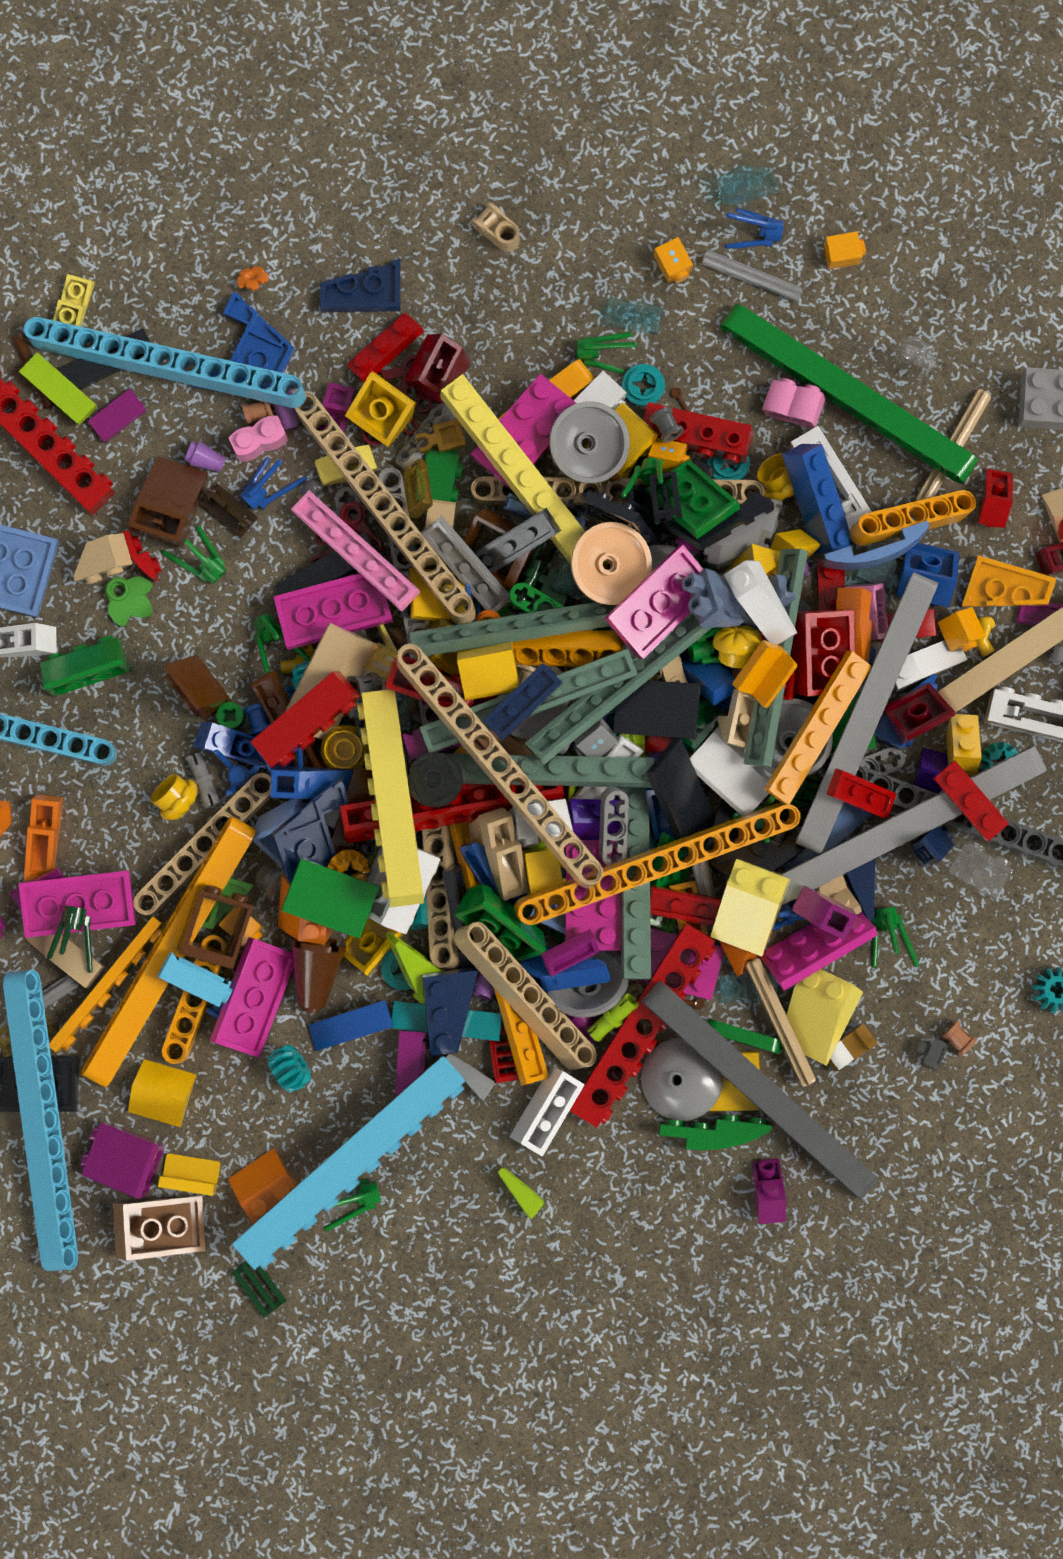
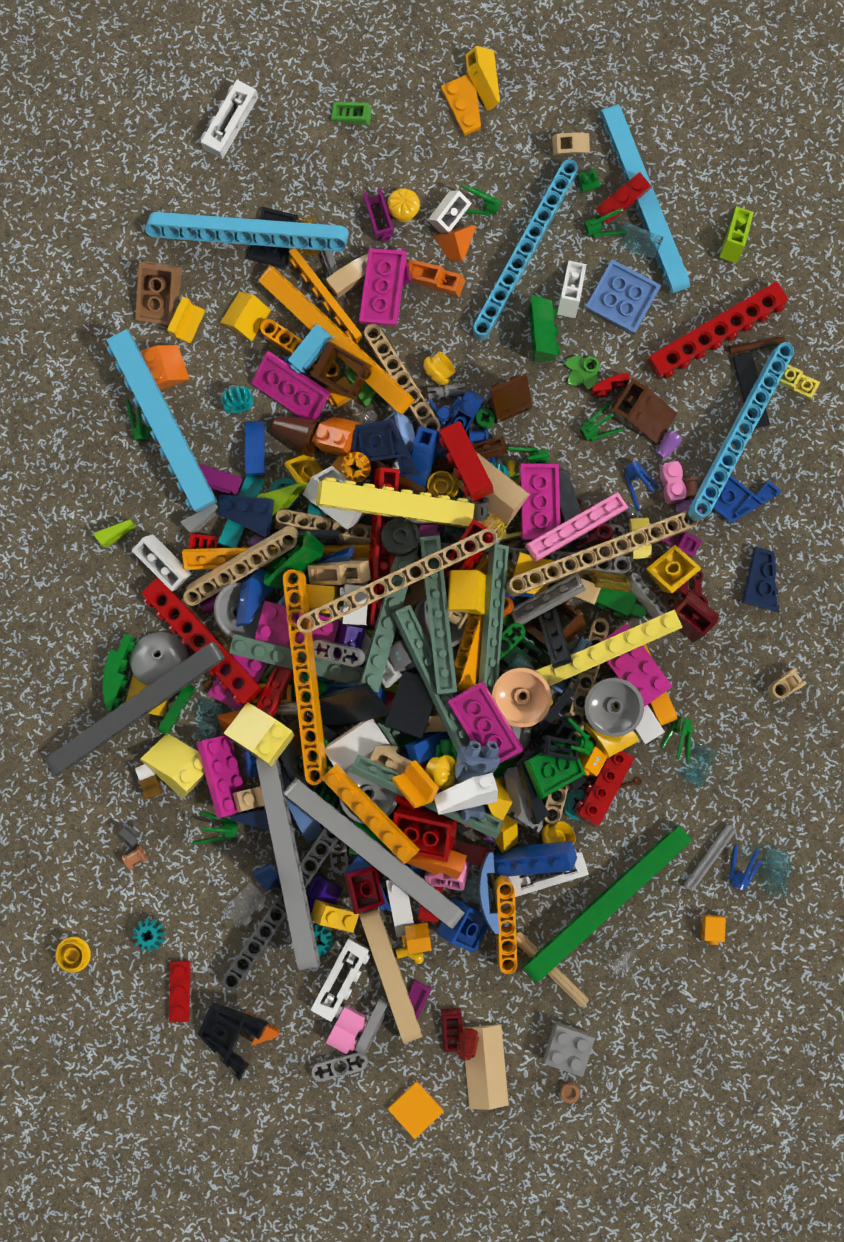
camera: 105 degrees right, 0 degrees up
(58, 389) = (739, 357): lime tile -> none
(73, 919) = (371, 279): dark green plant -> none
(102, 557) = (615, 358): tan slope -> none
(117, 415) = (712, 393): magenta tile -> none
(122, 1159) = (206, 279): magenta slope -> none
(228, 510) = (628, 452): dark brown hinge -> none
(252, 278) = (788, 506): orange plant -> none
(272, 1306) = (93, 344): dark green tile -> none
(330, 898) = (339, 448): green tile -> none
(385, 347) = (717, 585): red plate -> none
(446, 436) = (642, 609): pearl gold plate -> none
(522, 701) = (437, 608): dark blue plate -> none
(570, 953) = (259, 601): magenta tile -> none
(613, 1017) = (210, 621): lime pin -> none
(653, 377) = (657, 756): teal gear -> none
(666, 424) = (613, 765): dark grey bush -> none
(673, 261) = (733, 803): light orange brick -> none
(769, 1191) = (68, 699): magenta slope -> none
(780, 1022) = (178, 736): tan axle -> none
(794, 403) = (609, 862): bright pink brick -> none
(824, 912) = (240, 784): magenta slope -> none
(861, 793) = (315, 831): red plate -> none
(970, 801) = (290, 908): red plate -> none
(996, 498) = (506, 990): red slope -> none
(1006, 585) = (441, 980): light orange wing -> none

